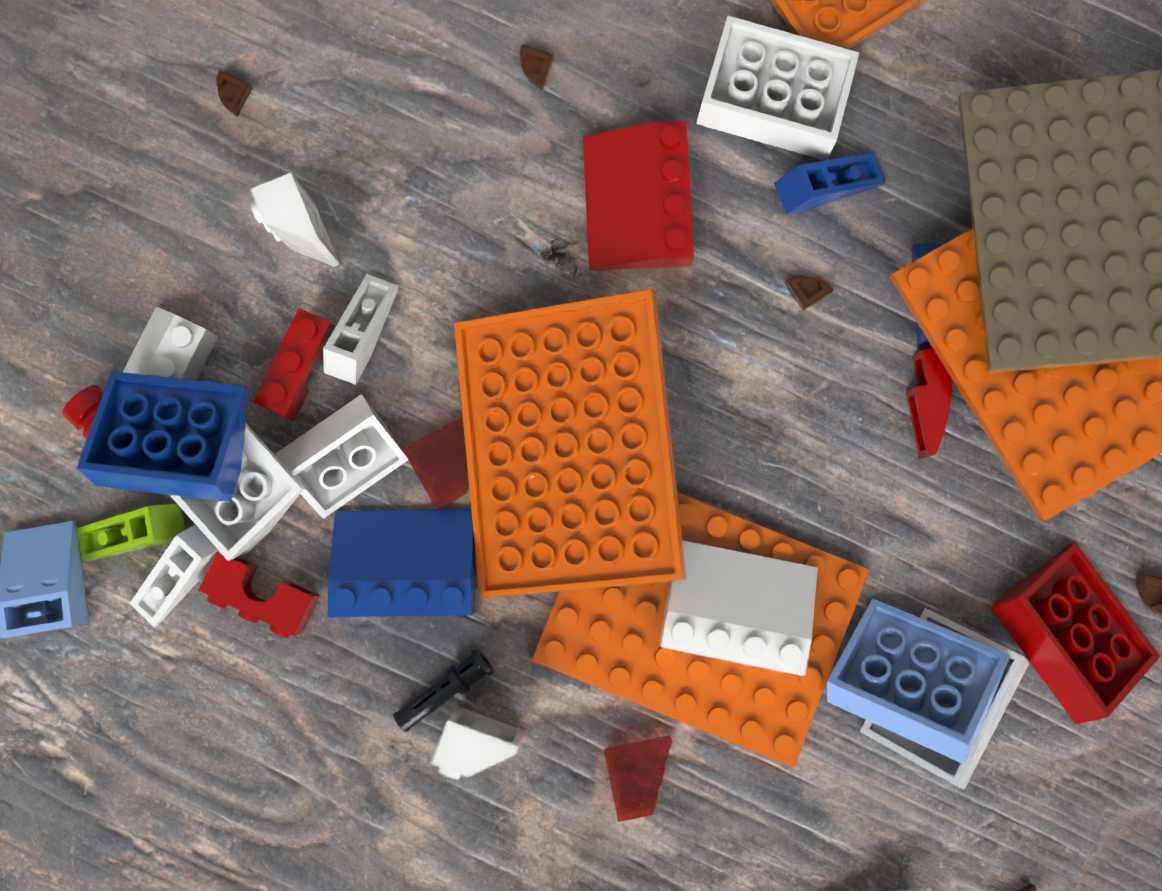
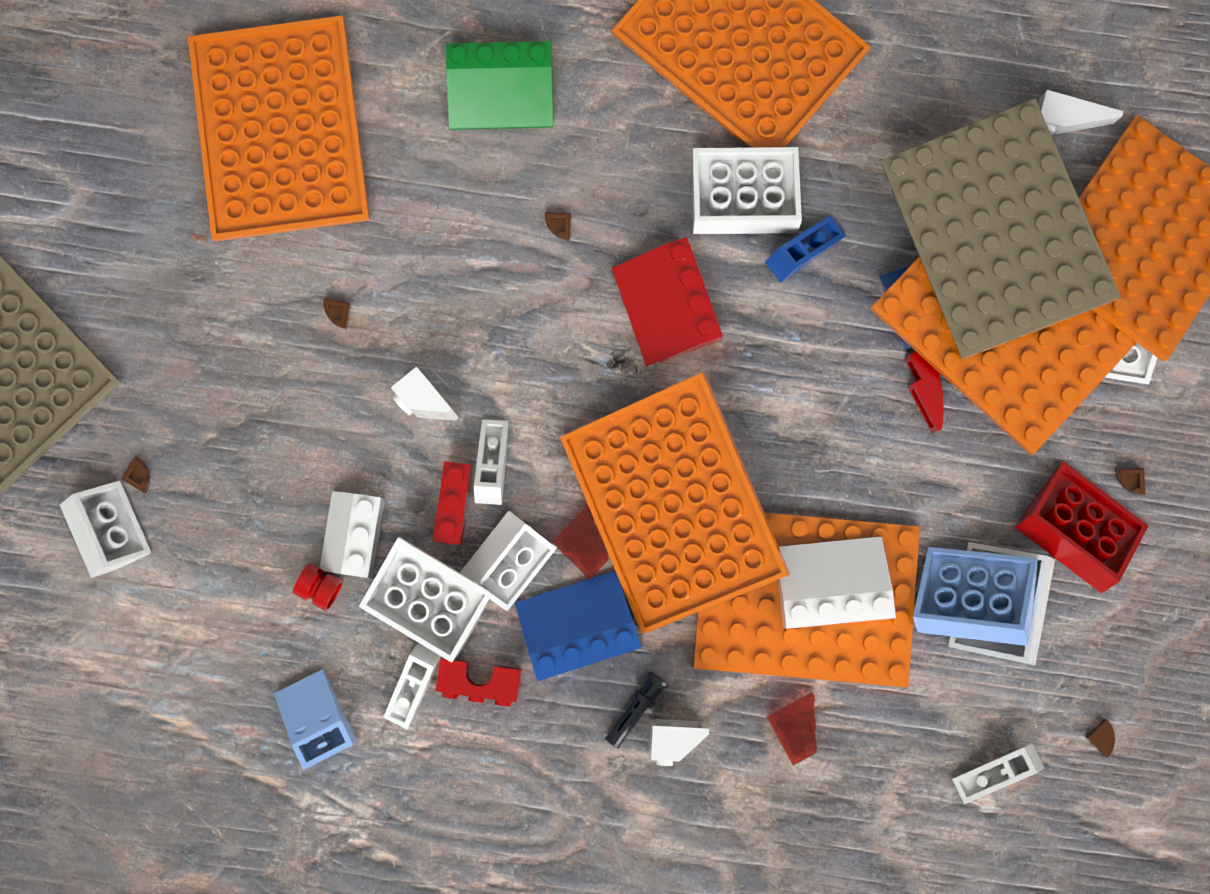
camera: 20 degrees left, 0 degrees up
(130, 531) = (368, 664): lime slope -> none
(167, 436) = (383, 584): blue slope -> none
(808, 290) = (813, 333): reddish brown tile -> none

